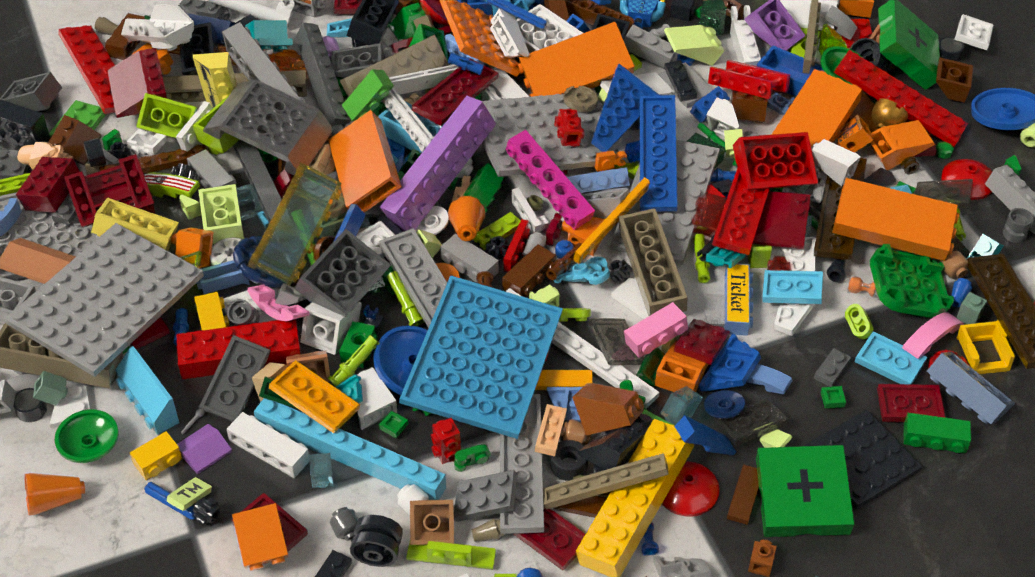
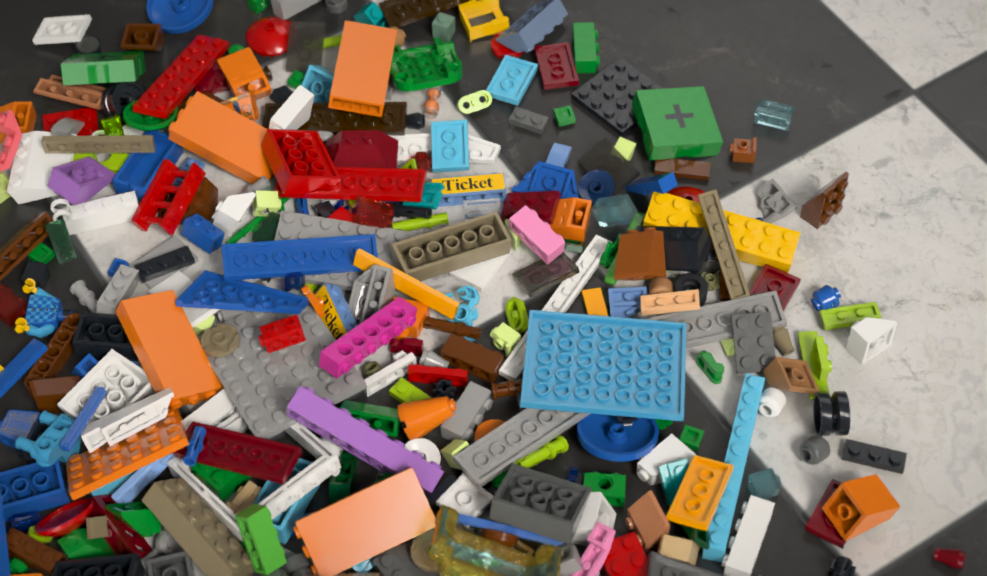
camera: 100 degrees left, 5 degrees up
(347, 369) = (642, 485): lime pin -> none
(445, 440) = (706, 382): red brick -> none
(563, 248) = (431, 336): blue piece -> none
(619, 271) = (453, 277): black gear -> none
(695, 42) = (108, 250): yellowish green slope -> none
(886, 113) = (212, 83): pearl gold cylinder -> none
(930, 333) = (480, 48): bright pink slope -> none
(960, 291) = (422, 36): blue cone -> none

